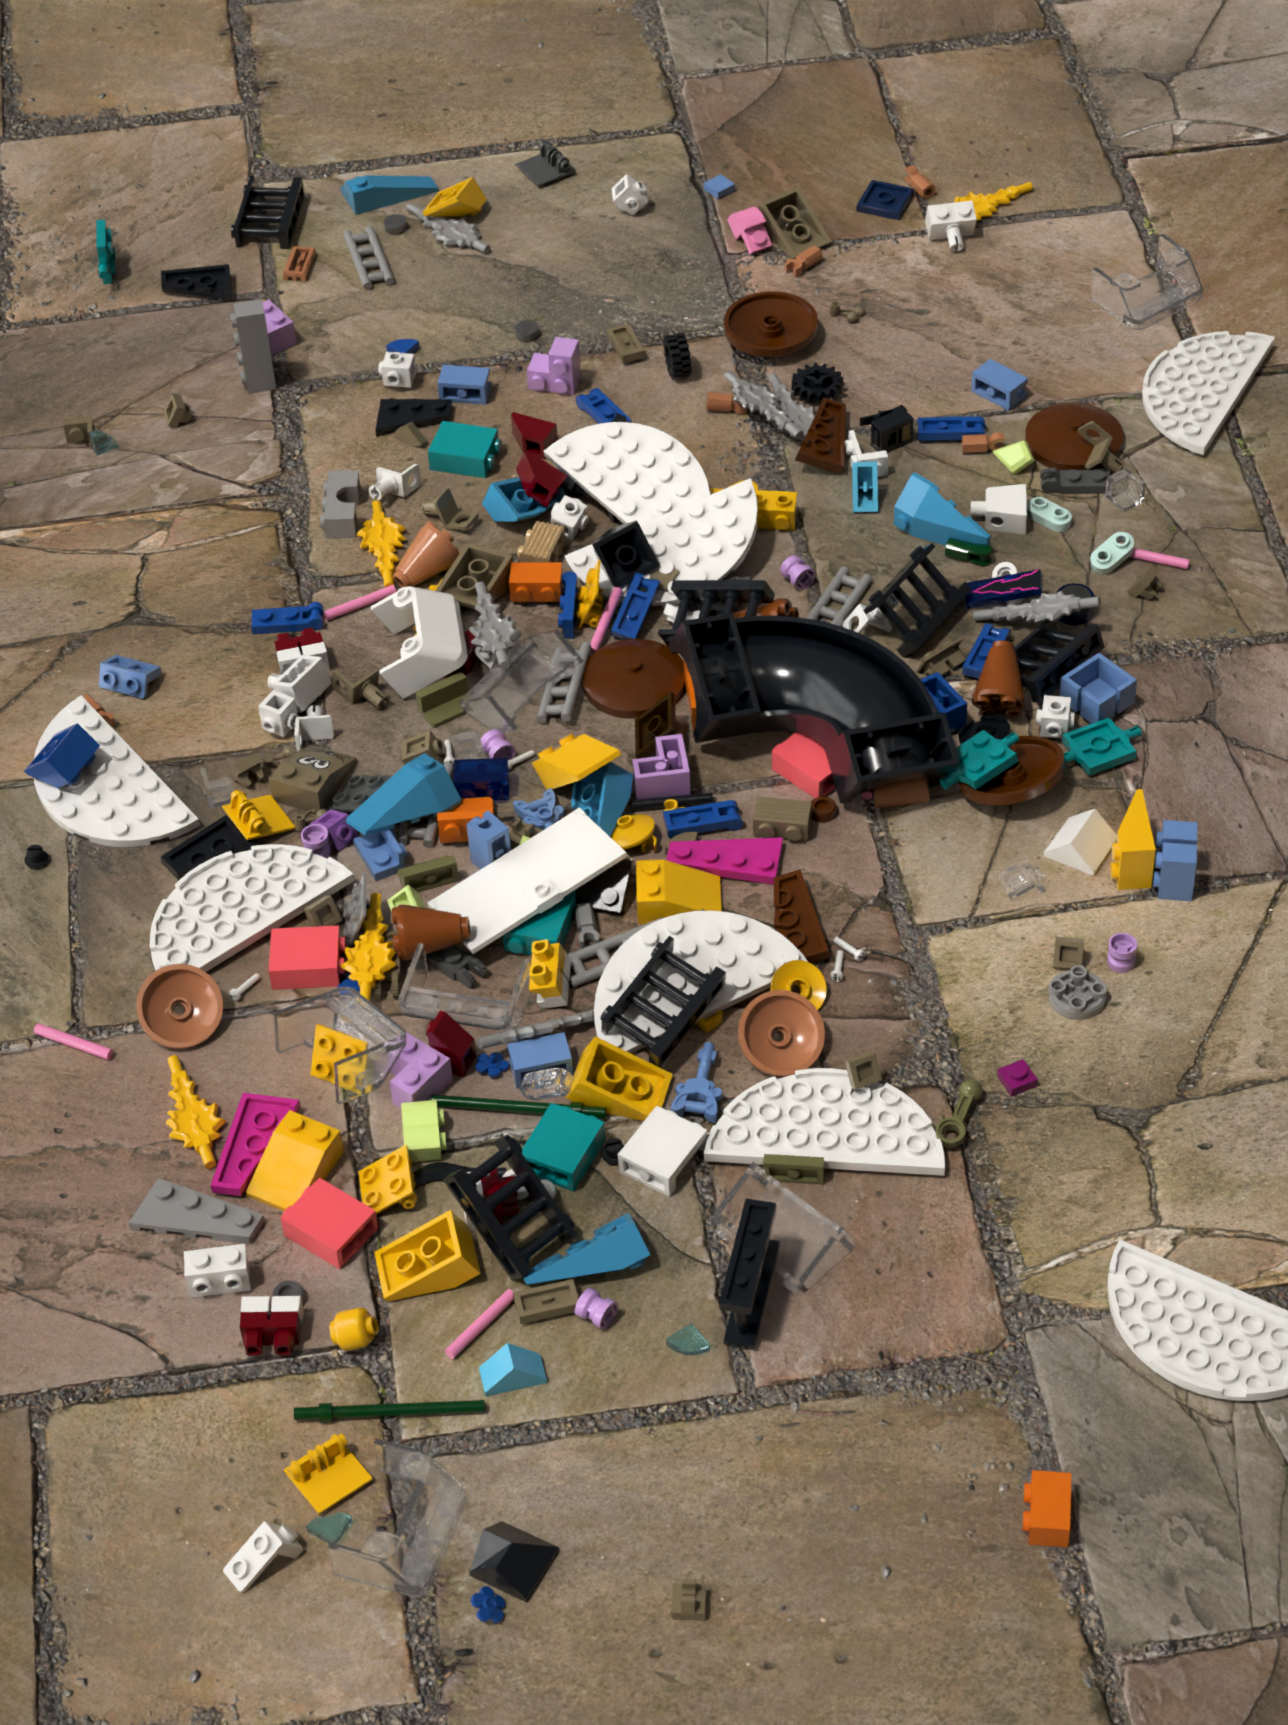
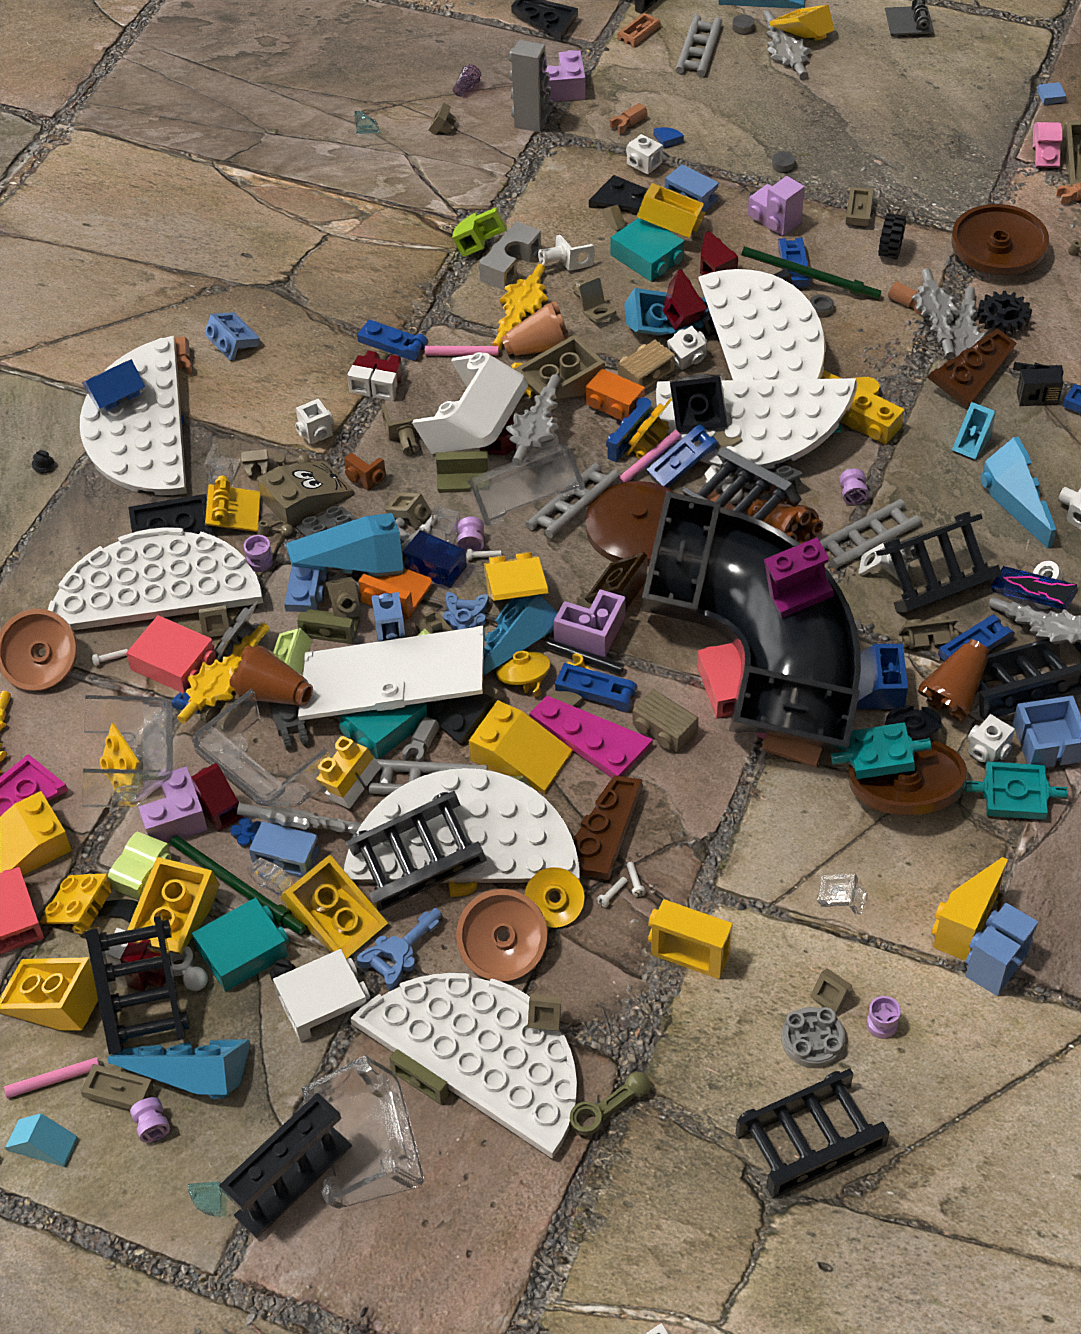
camera: 30 degrees right, 5 degrees up
(79, 429) = (353, 102): dark tan bracket -> none
(171, 366) = (467, 79): none -> clear purple cone
(293, 493) = (475, 229): none -> lime brick
(302, 680) = (353, 402): white brick -> none
(313, 726) = (332, 445): white bracket -> none
(338, 830) = (278, 544): medium lavender bracket -> none
(355, 344) = (629, 118): none -> nougat bar
(356, 737) = (363, 473): none -> dark orange bracket
(429, 842) = (344, 597): none -> dark tan bracket
(466, 407) = (671, 210): none -> yellow window
(473, 1132) = (181, 895): none -> yellow slope
(630, 195) = (960, 71): white brick -> none
(673, 411) = (856, 287): none -> dark green bar
(823, 809) = (711, 728): reddish brown tile -> none
(840, 643) = (798, 577): none -> magenta panel
(852, 448) = (1004, 409): white bracket -> none
(933, 949) = (690, 938): none -> yellow window
(968, 551) = (1030, 535): dark green bar -> none
(1017, 1077) = (693, 1094): magenta plate -> none
(1082, 842) = (927, 881): white slope -> none
(1145, 1078) = (812, 1163): none -> black fence

